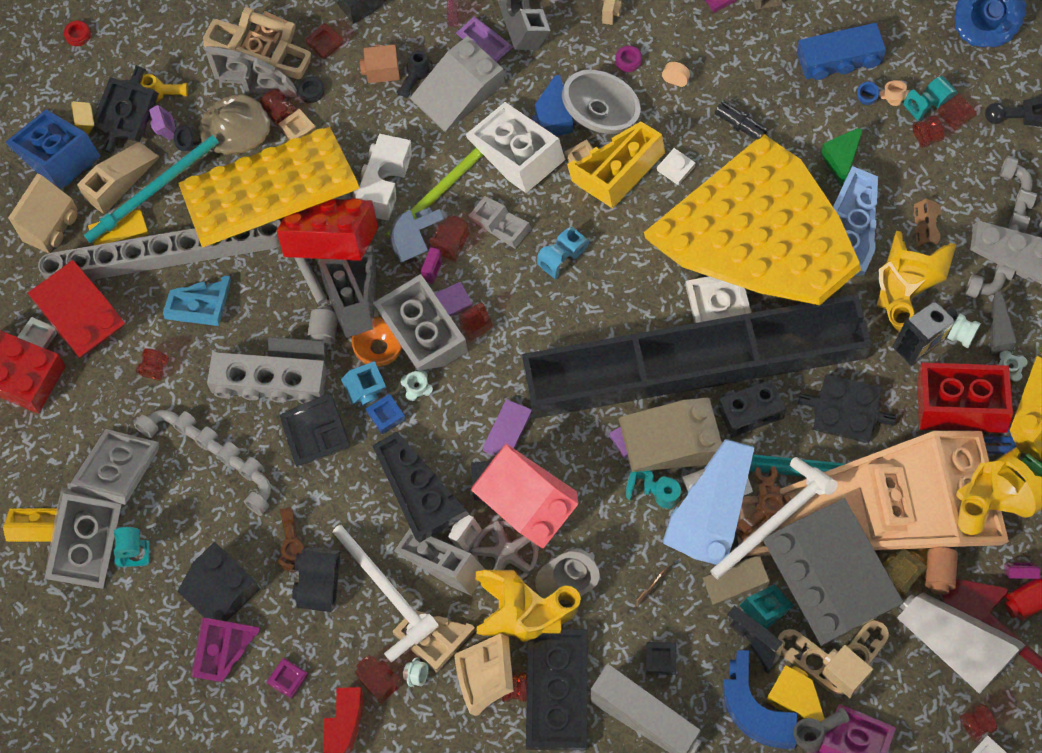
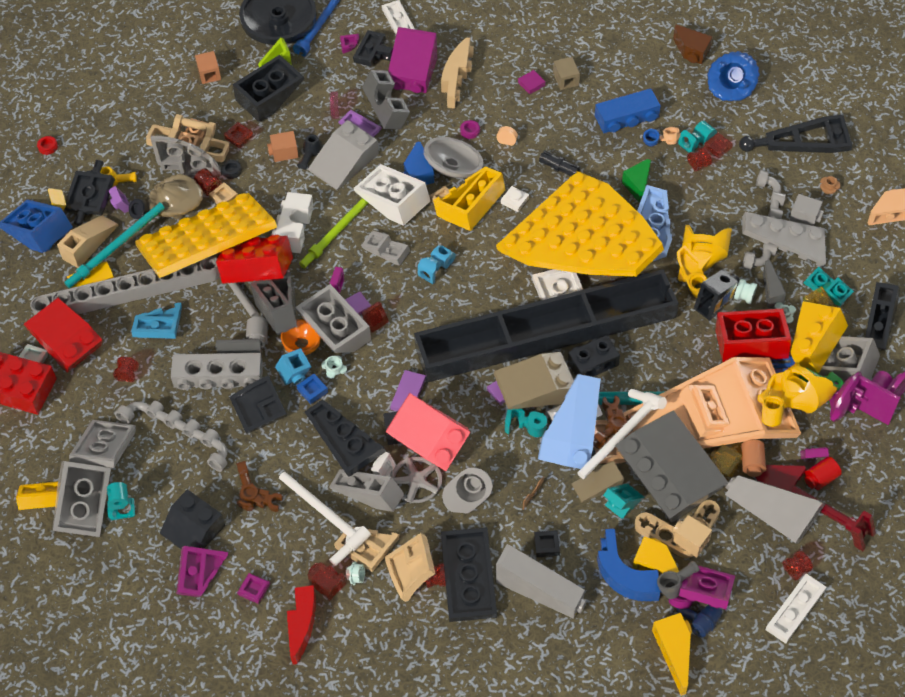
camera: 10 degrees left, 10 degrees down
(43, 214) = (31, 269): tan slope -> none
(317, 579) = (271, 510): black brick -> none
(405, 232) = (315, 258): sand blue brick -> none
(450, 237) = (350, 260): clear red brick -> none
(522, 610) = (433, 515): yellow piece -> none
(761, 640) = (620, 517): black plate -> none
(847, 408) = (665, 353): black plate -> none
(933, 211) = (710, 212): medium nougat piece -> none

